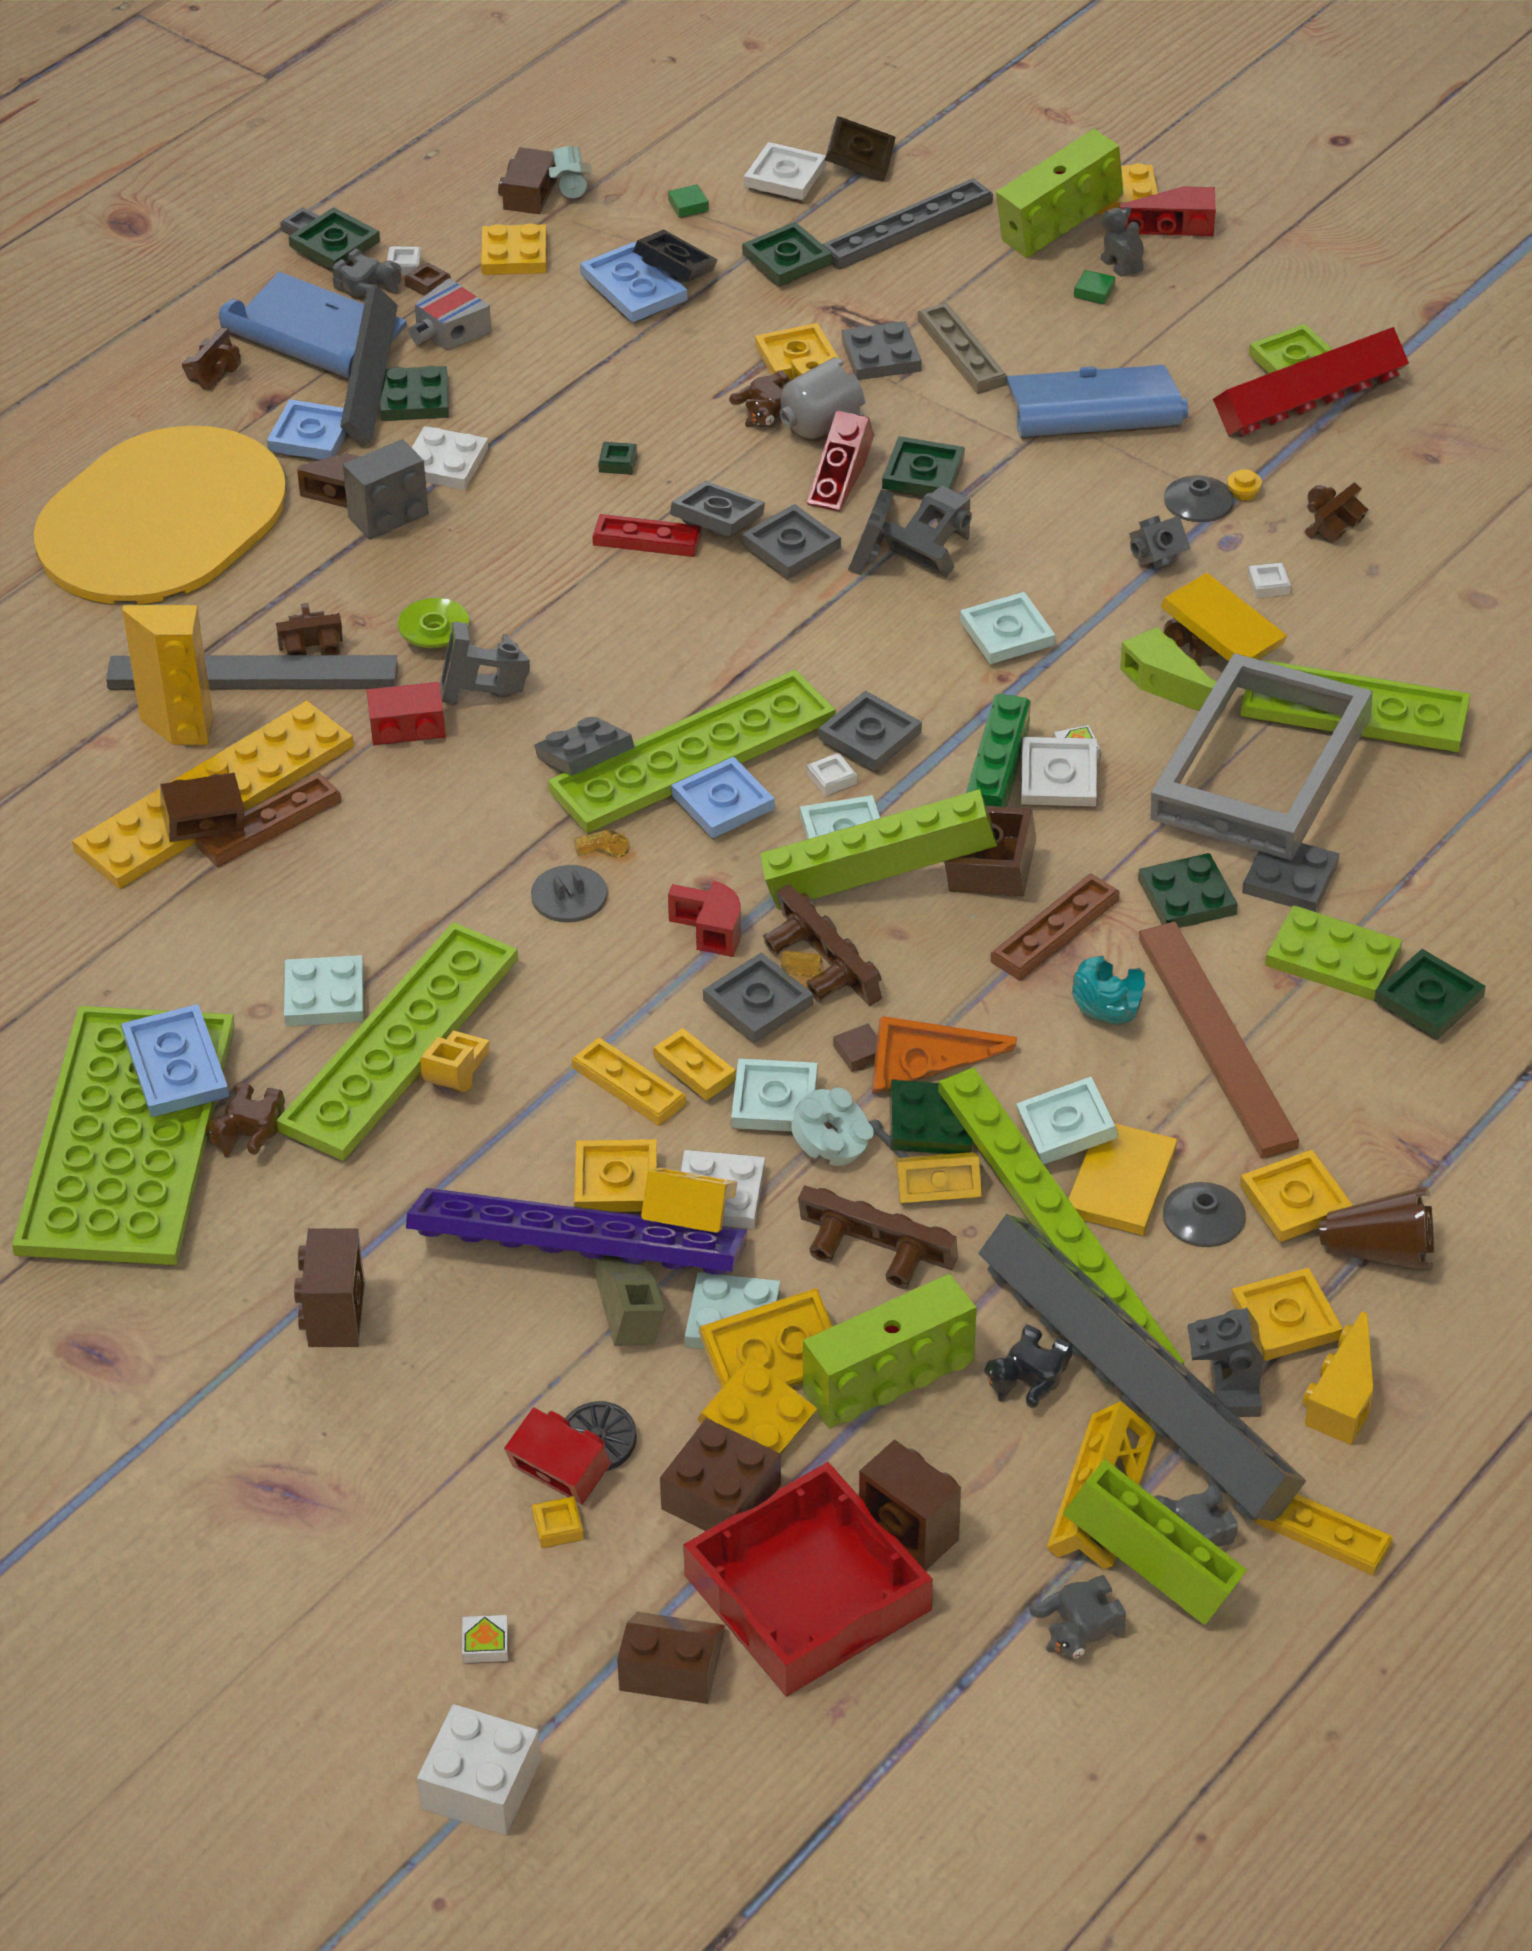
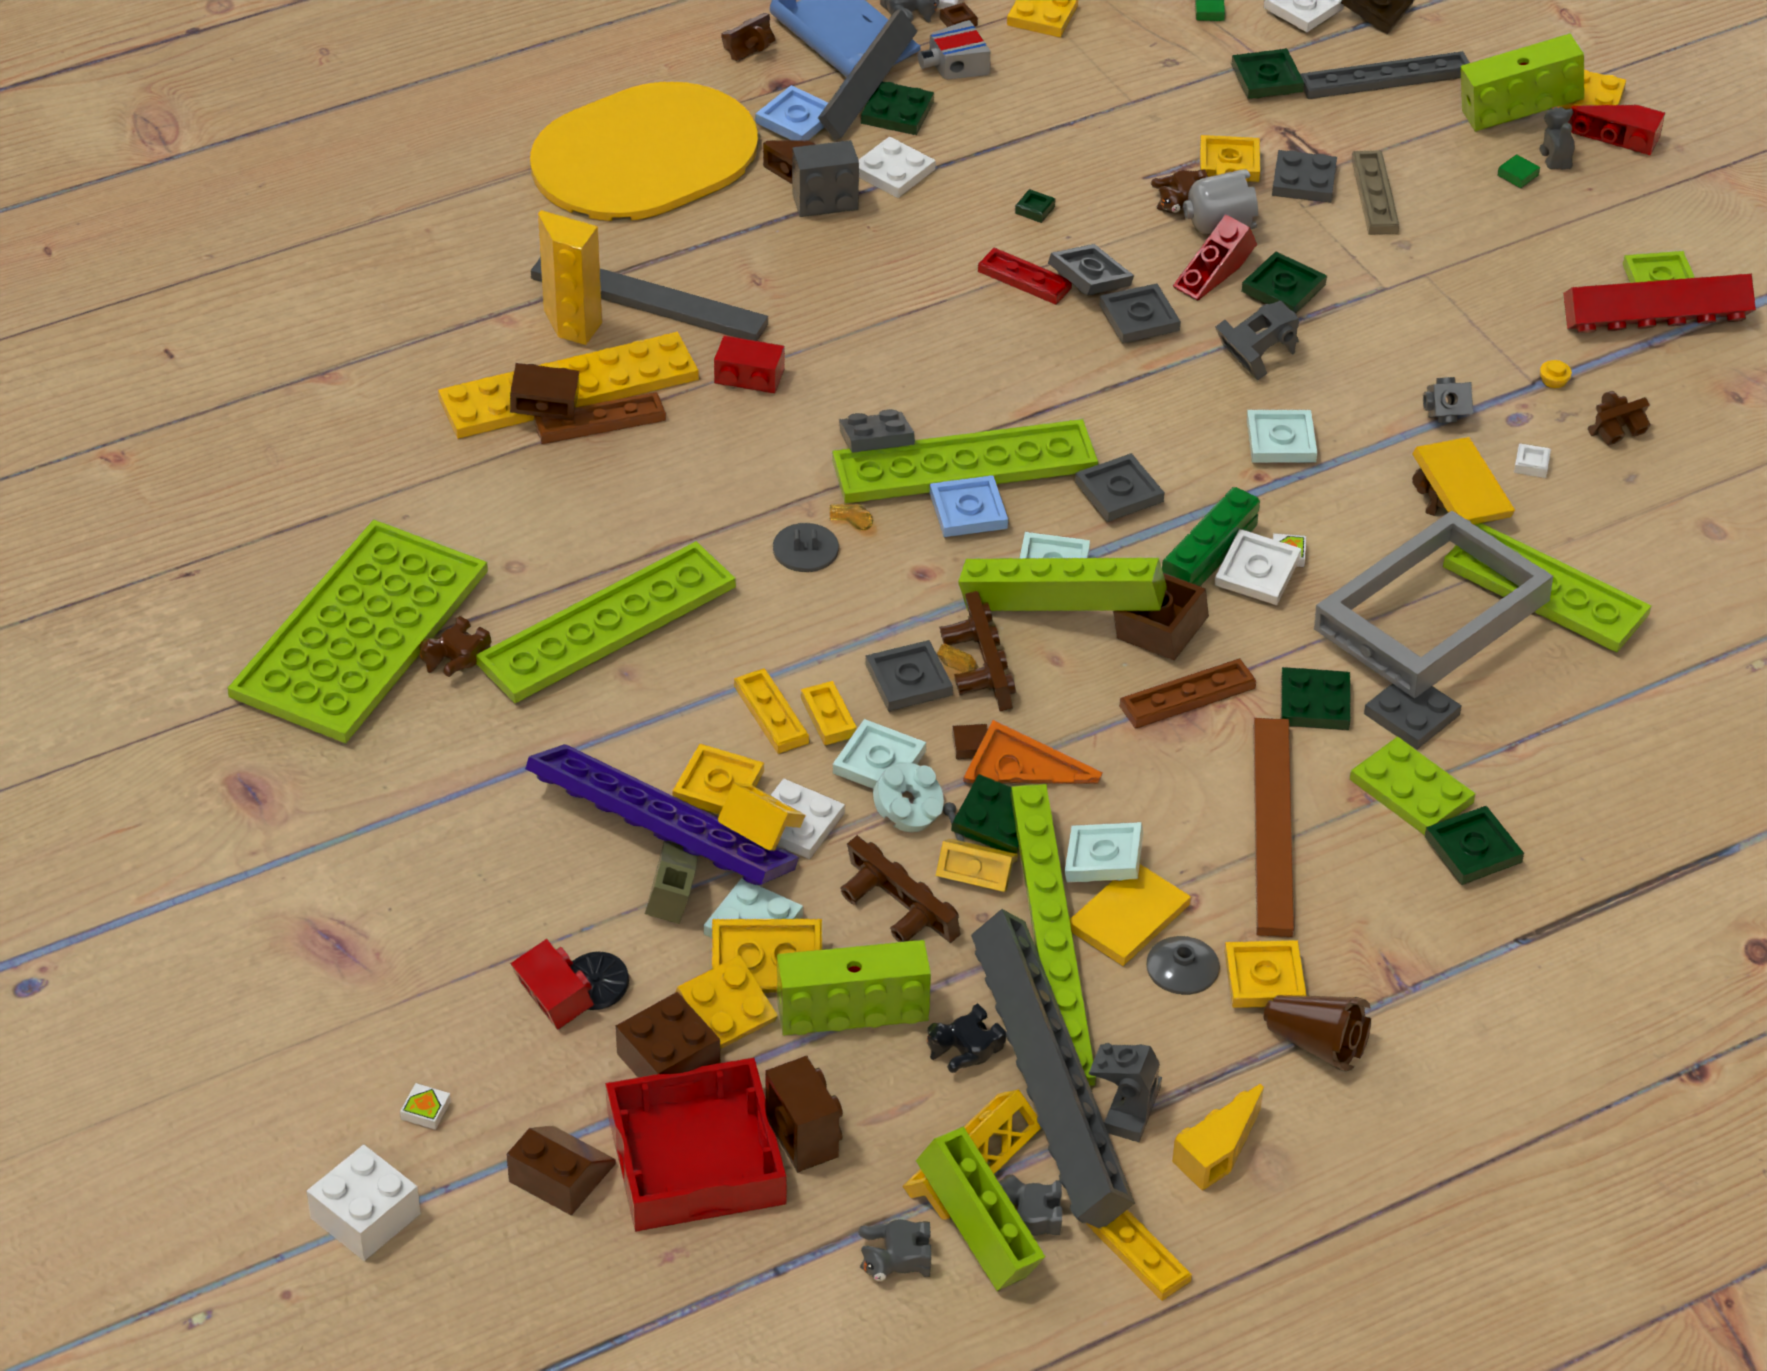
camera: 20 degrees right, 0 degrees up
(174, 1060) = (419, 583): light blue plate -> none
(310, 630) = (708, 276): reddish brown hips -> none
(324, 990) = (570, 565): light aqua plate -> none
(330, 1287) = (445, 796): reddish brown brick -> none
(430, 621) = (810, 297): lime dish -> none
(454, 1060) = (637, 651): yellow brick -> none
(463, 662) = (812, 331): dark grey tile -> none
(557, 1522) = (529, 1036): yellow tile -> none
(632, 284) = (1125, 63): light blue plate -> none
(674, 255) = (1167, 50): black plate -> none
(713, 914) = (905, 599): red brick -> none
(831, 774) = (1070, 514): white tile -> none
(867, 548) = (1204, 323): dark grey wing -> none
(1096, 400) = (1464, 267): medium blue door -> none
(1105, 995) = (1192, 760): teal hair -> none
(1164, 669) = (1394, 505): lime slope -> none
(1198, 498) = (1510, 375): dark grey dish -> none
(1289, 1313) = (1202, 1066): yellow plate -> none

